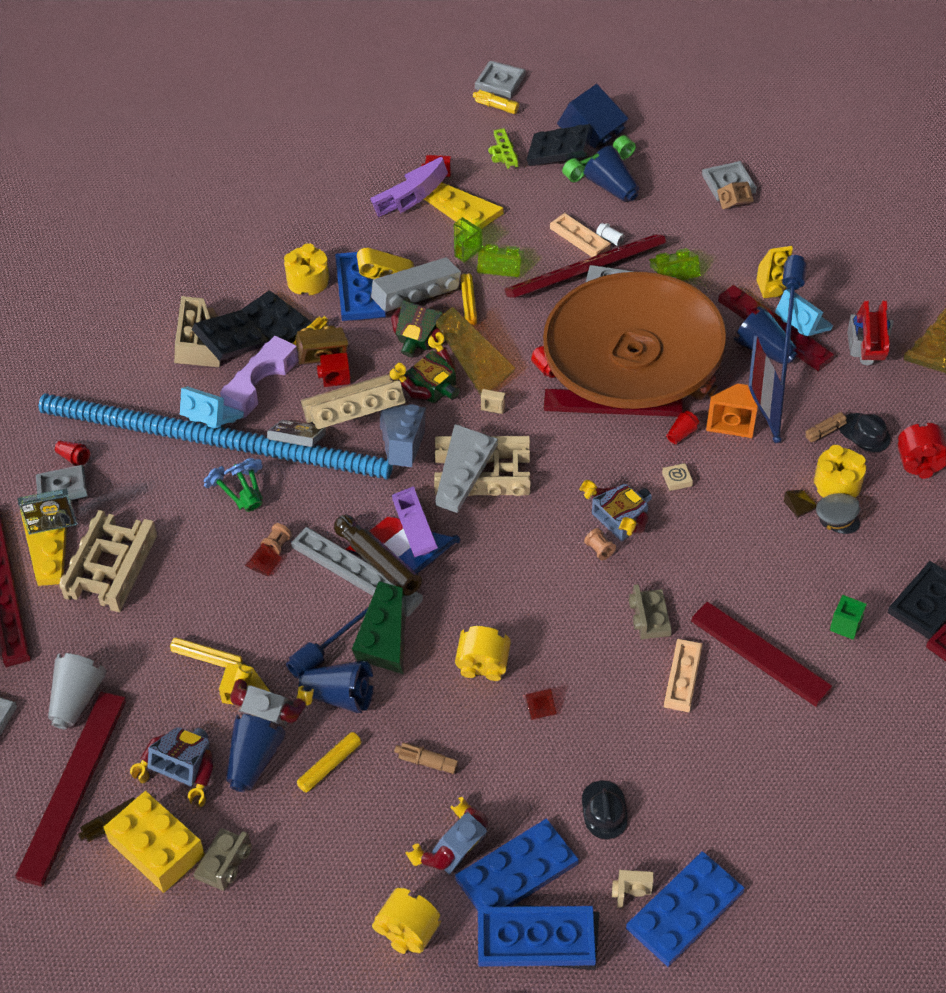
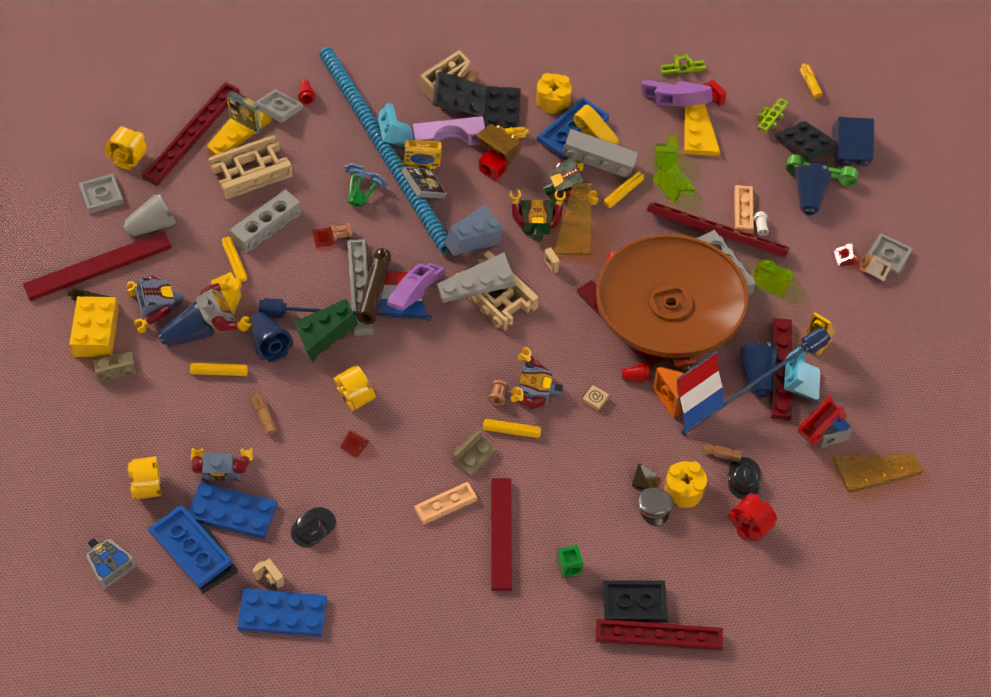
camera: 45 degrees right, 5 degrees up
(192, 593) = (265, 221): none -> light grey brick
(264, 408) = (422, 153): none -> yellow slope
(352, 401) = (471, 190): tan fence -> none
(381, 160) = (689, 63): none -> lime piece
(500, 79) = (836, 68): light grey tile -> none
(648, 562) = (511, 428): none -> yellow axle
(701, 206) = (846, 255): none -> clear red slope

